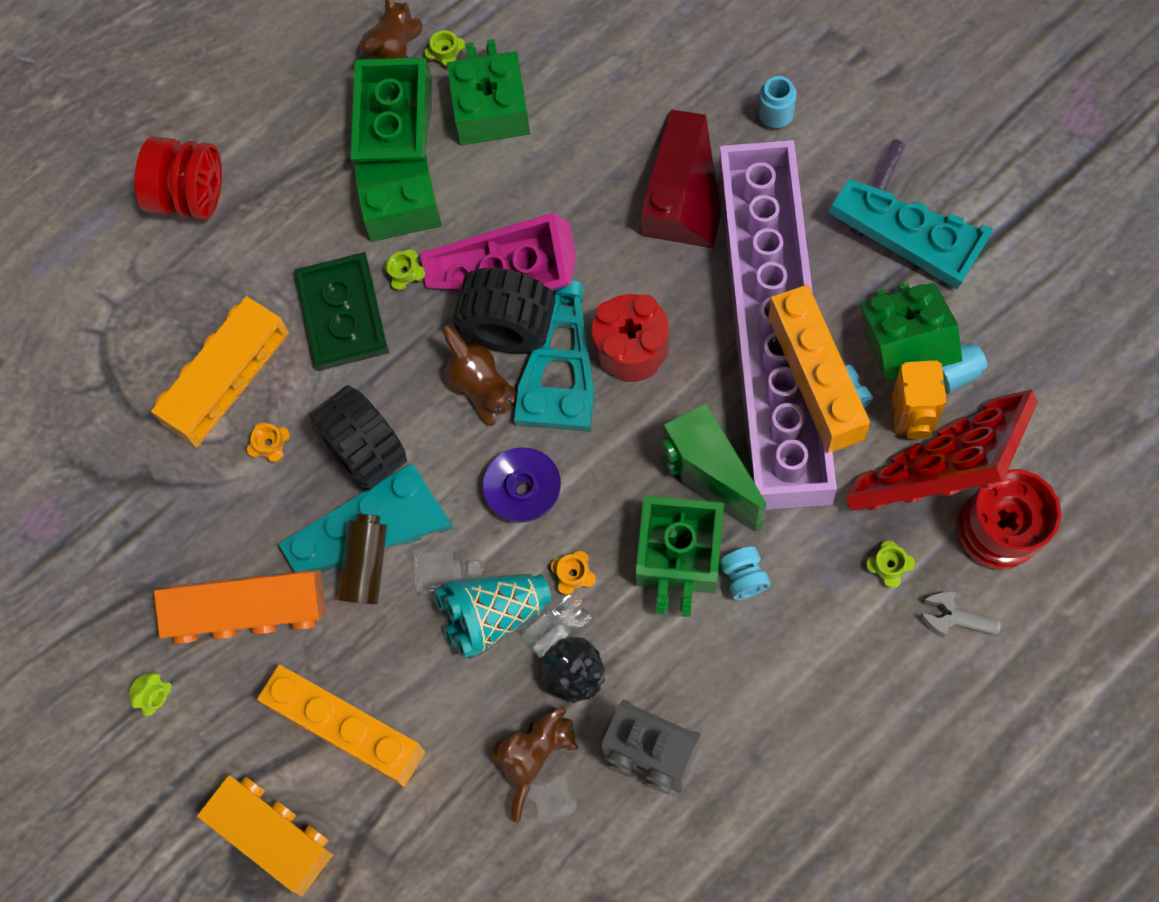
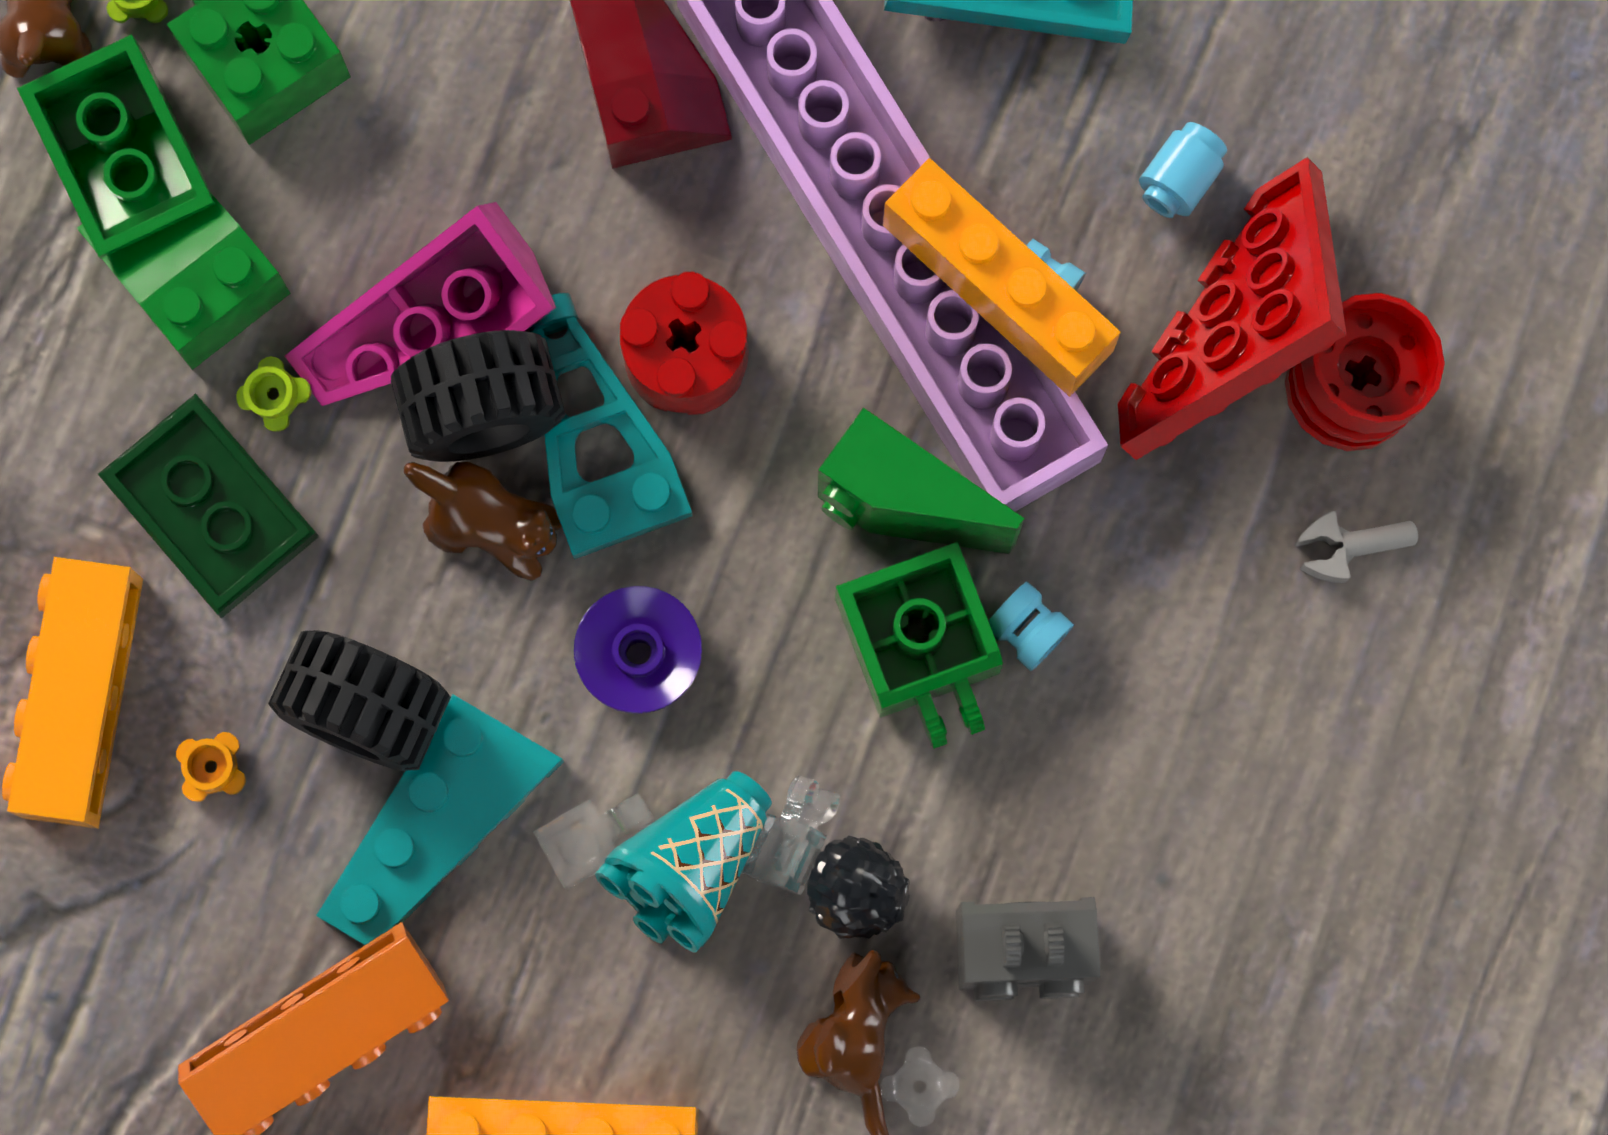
camera: 35 degrees left, 10 degrees up
(363, 559) = (464, 879): dark brown brick -> none
(578, 562) = (779, 726): light orange plate -> none
(902, 563) = (1238, 499): lime plate -> none
(910, 328) = (1094, 146): green hinge -> none
(918, 399) = (1156, 250): light orange brick -> none

